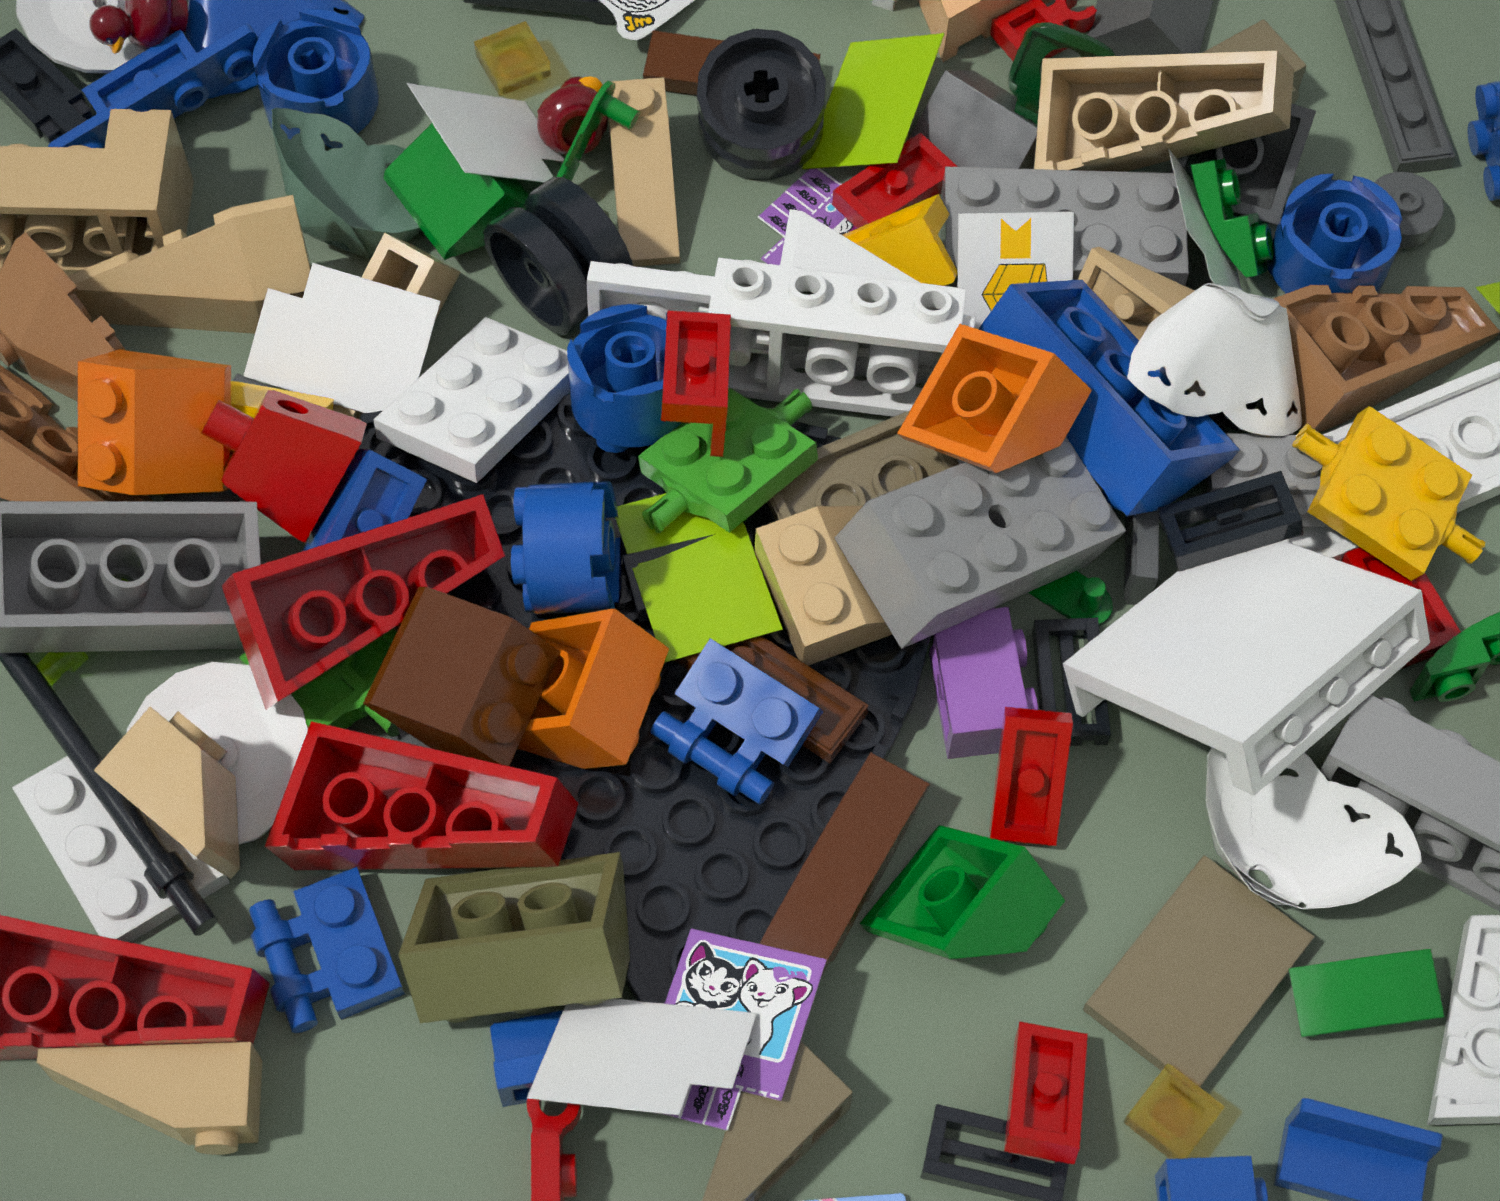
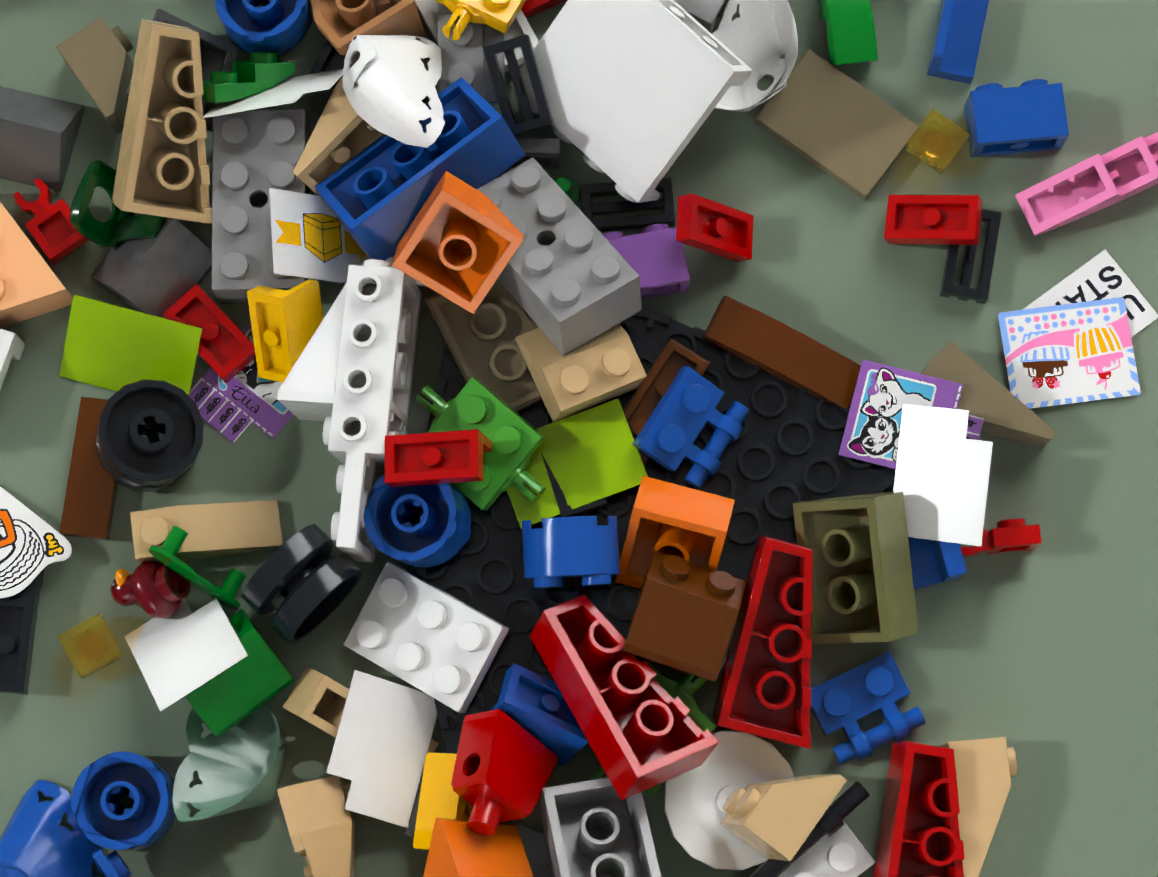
camera: 90 degrees left, 15 degrees up
(966, 898) = (804, 275): green slope -> none

